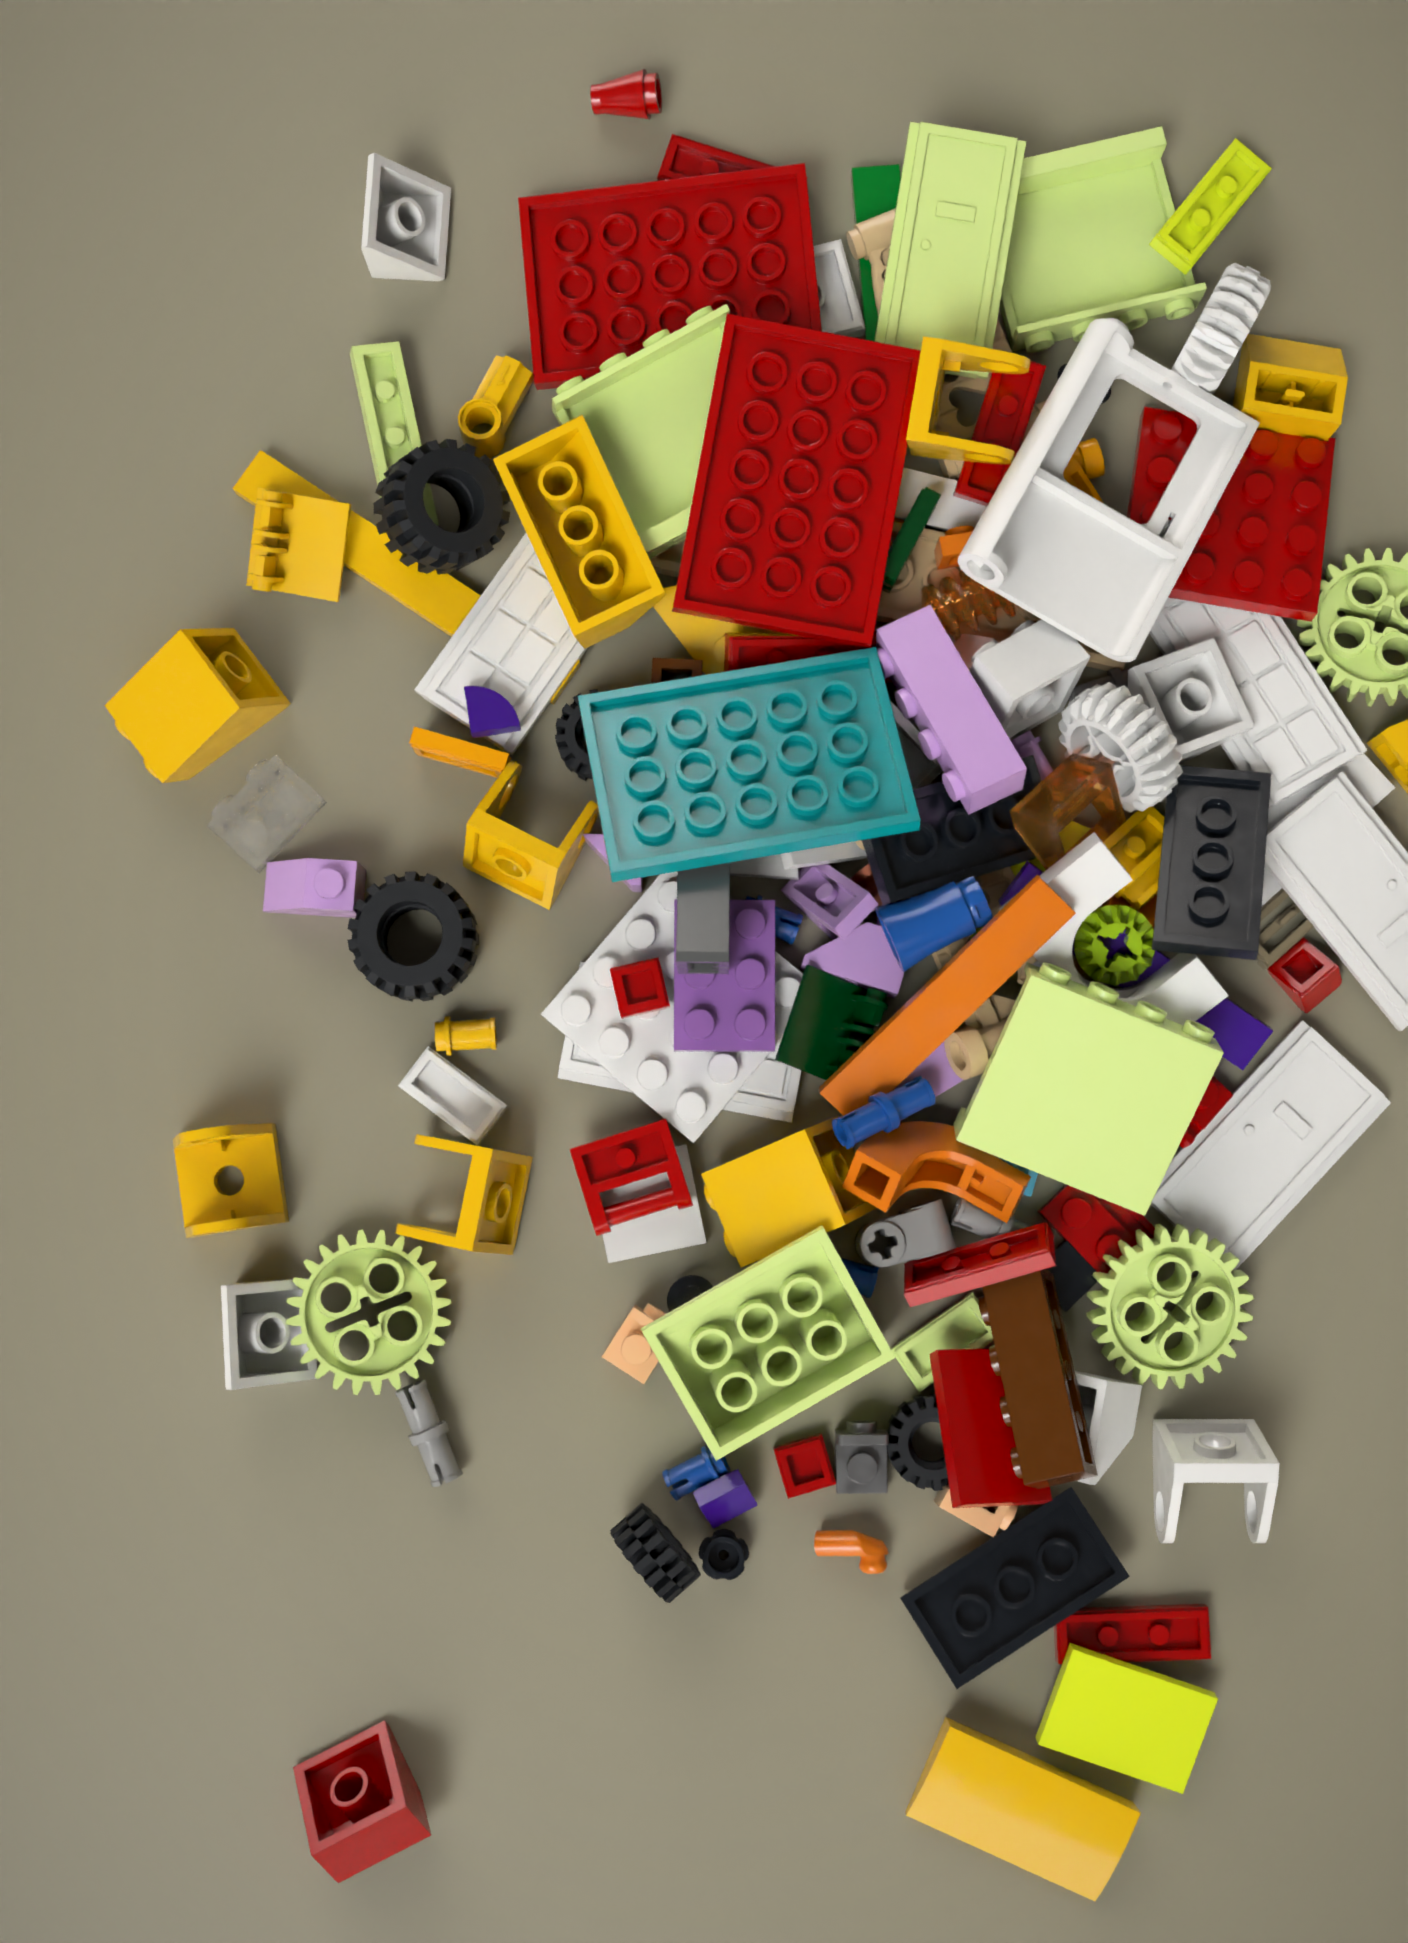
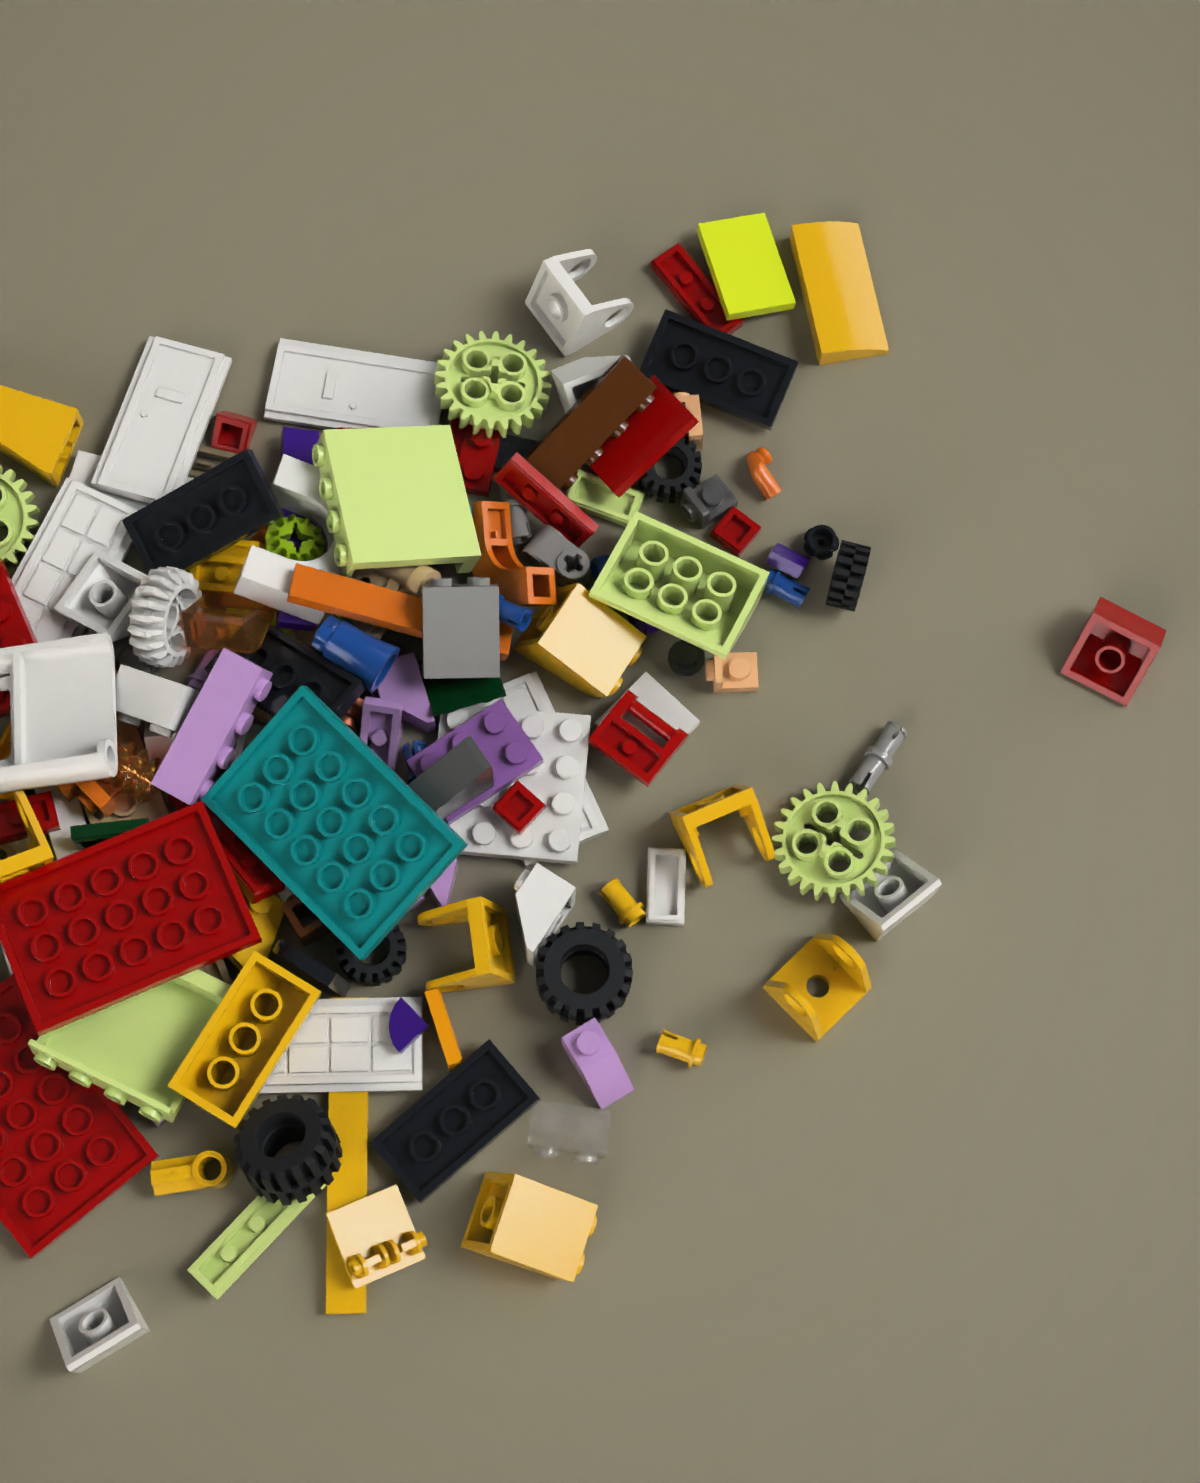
camera: 130 degrees left, 10 degrees down
(267, 989) = (682, 1048): none -> yellow pin
(357, 702) = (455, 1121): none -> black plate
(511, 934) = (541, 907): none -> white slope
(617, 654) = (312, 967): none -> black tile
(881, 1054) = (460, 629): none -> light grey panel

